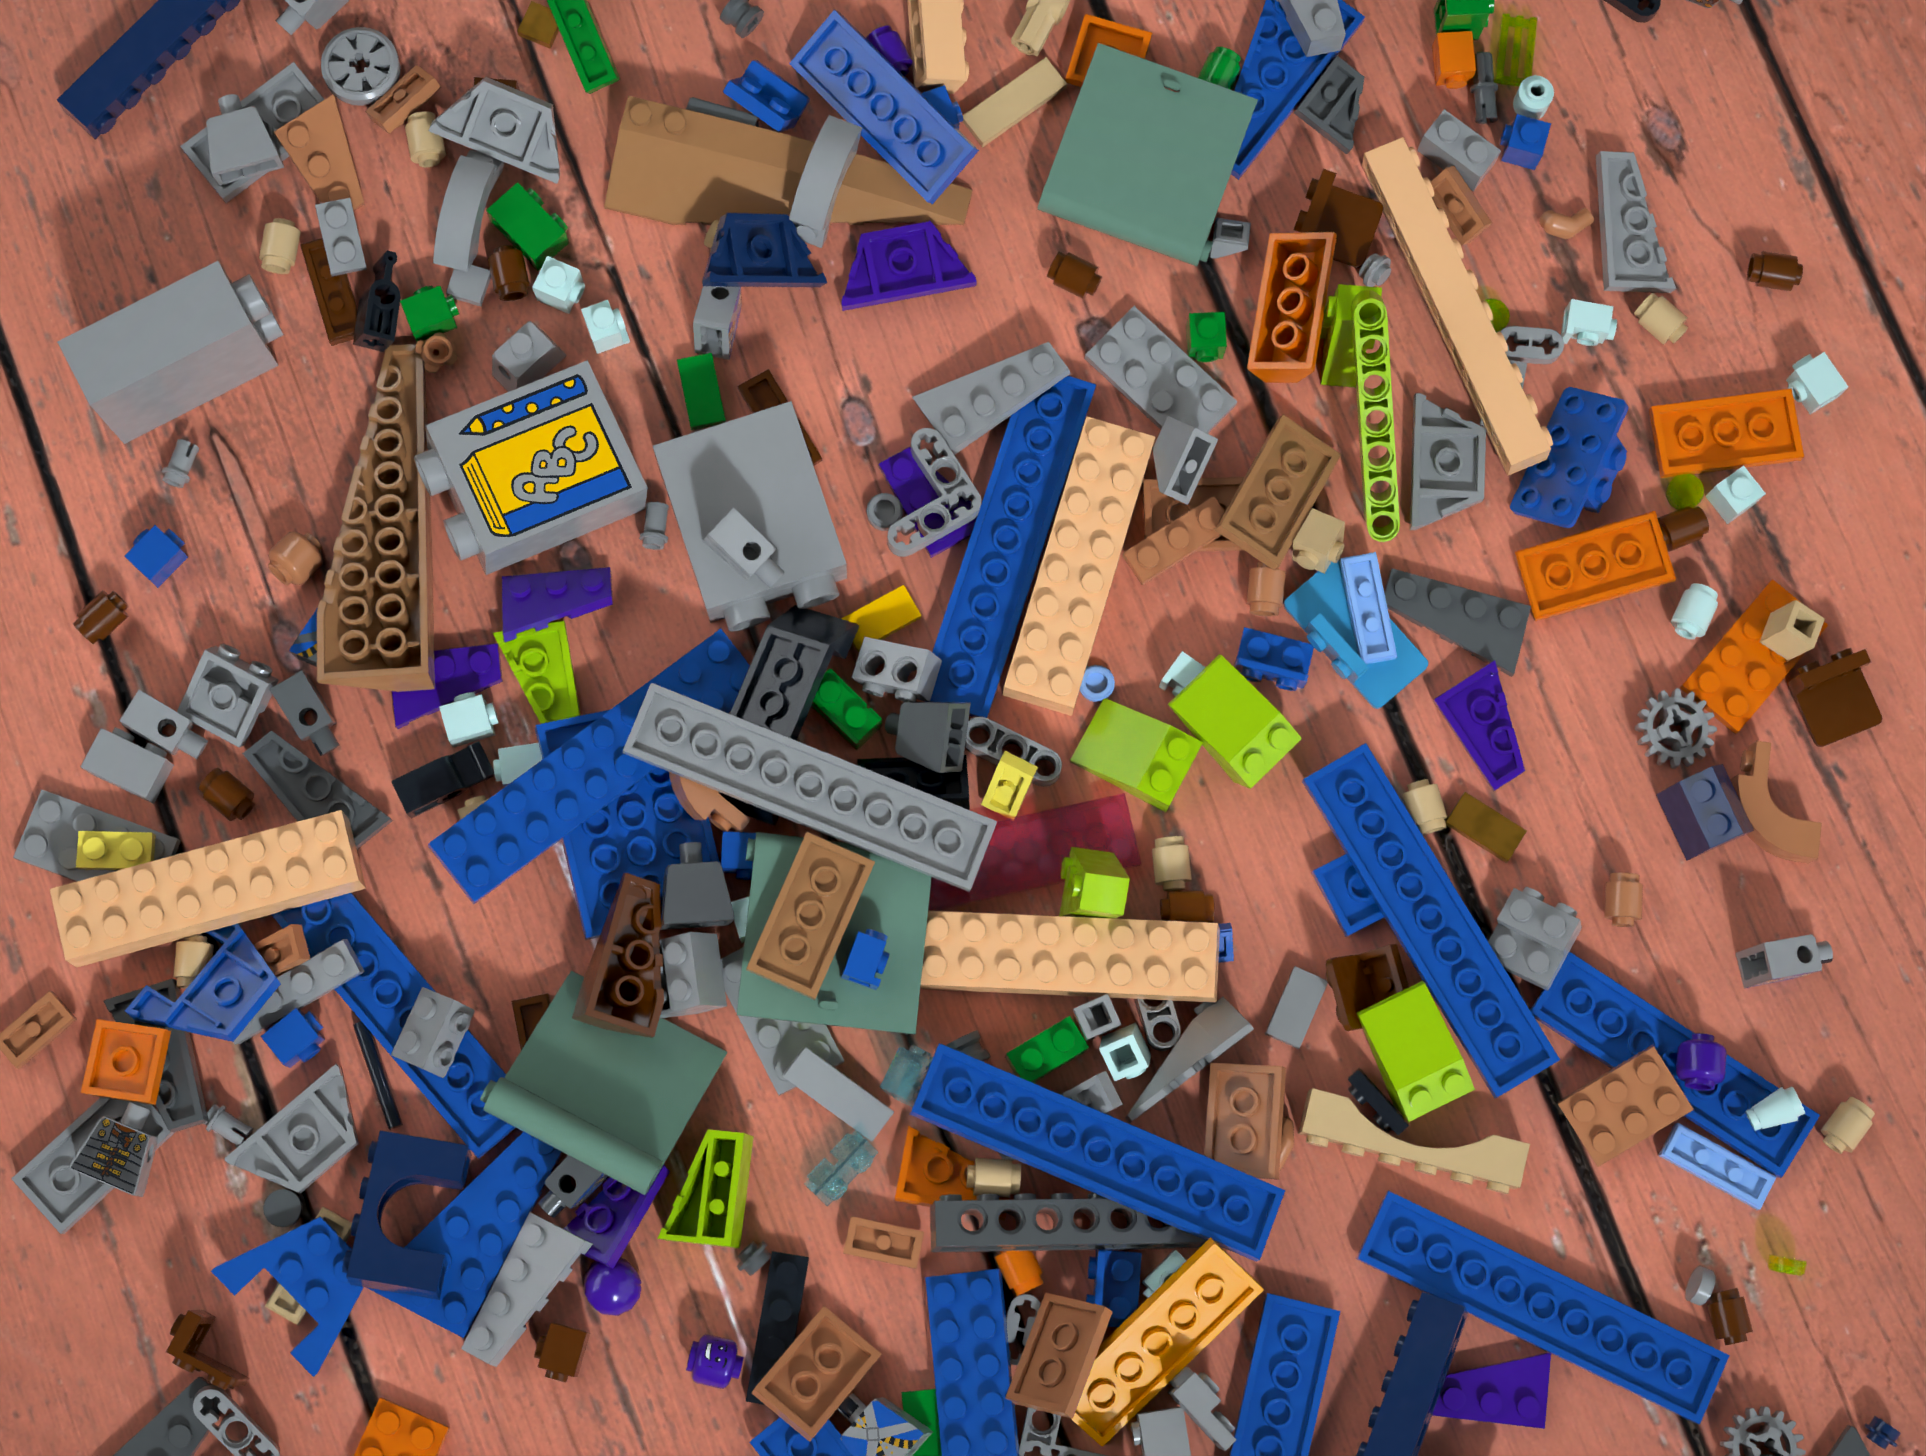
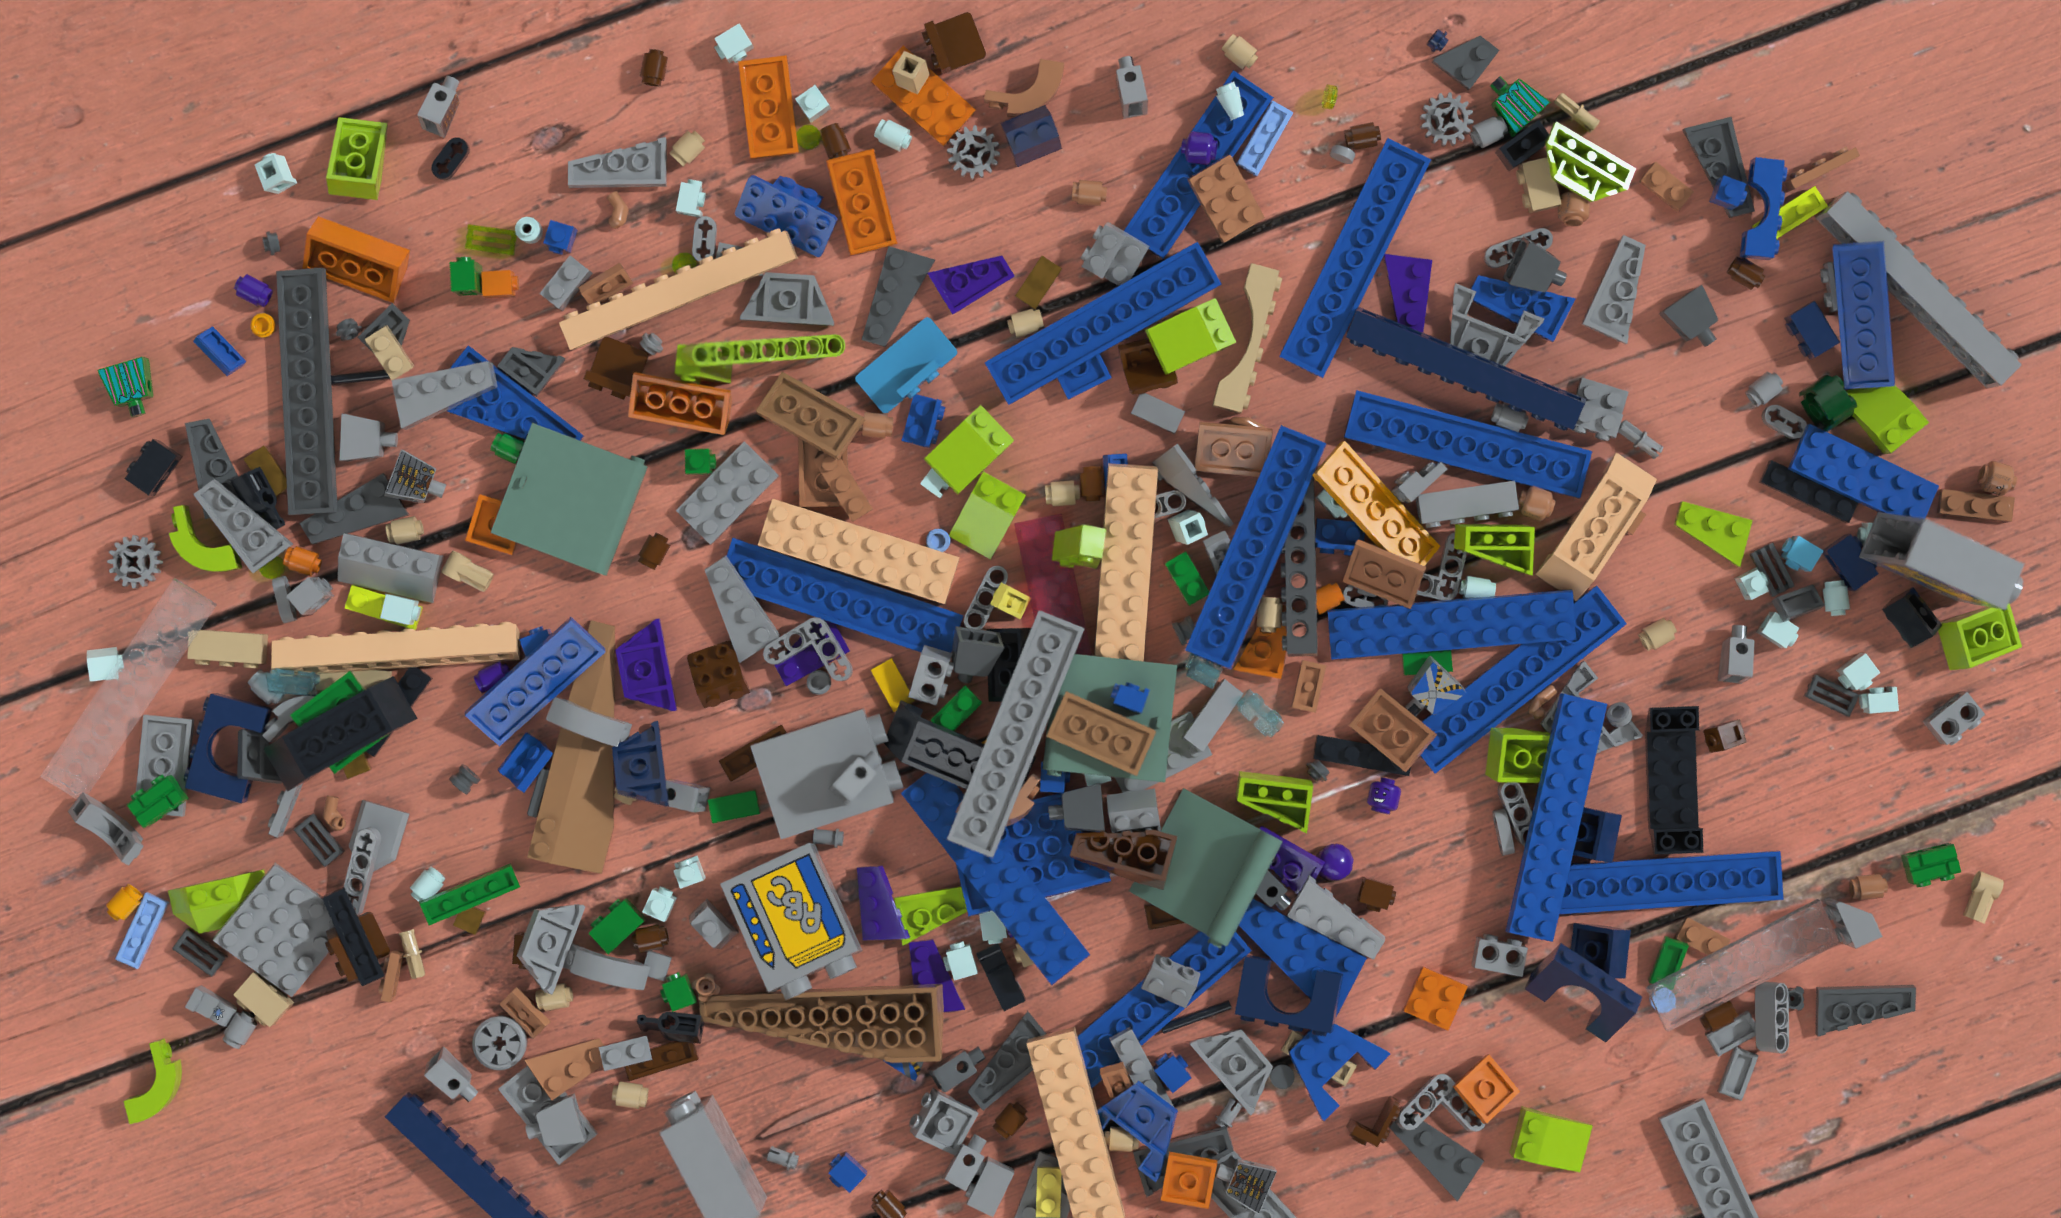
camera: 85 degrees left, 10 degrees up
(295, 558) = (849, 1078): nougat head -> none
(893, 365) = (717, 674): none -> reddish brown bracket
(1014, 102) = (527, 590): tan tile -> none
(1097, 1017) = (1167, 546): light grey leg -> none
(1181, 458) = (787, 481): light grey slope -> none
(1229, 237) = (626, 443): light grey slope -> none
(1319, 541) = (844, 389): tan brick -> none
(1366, 1091) = (1213, 369): black plate -> none
(1368, 608) = (889, 356): light blue tile -> none
(1484, 88) = (519, 263): dark grey axle -> none

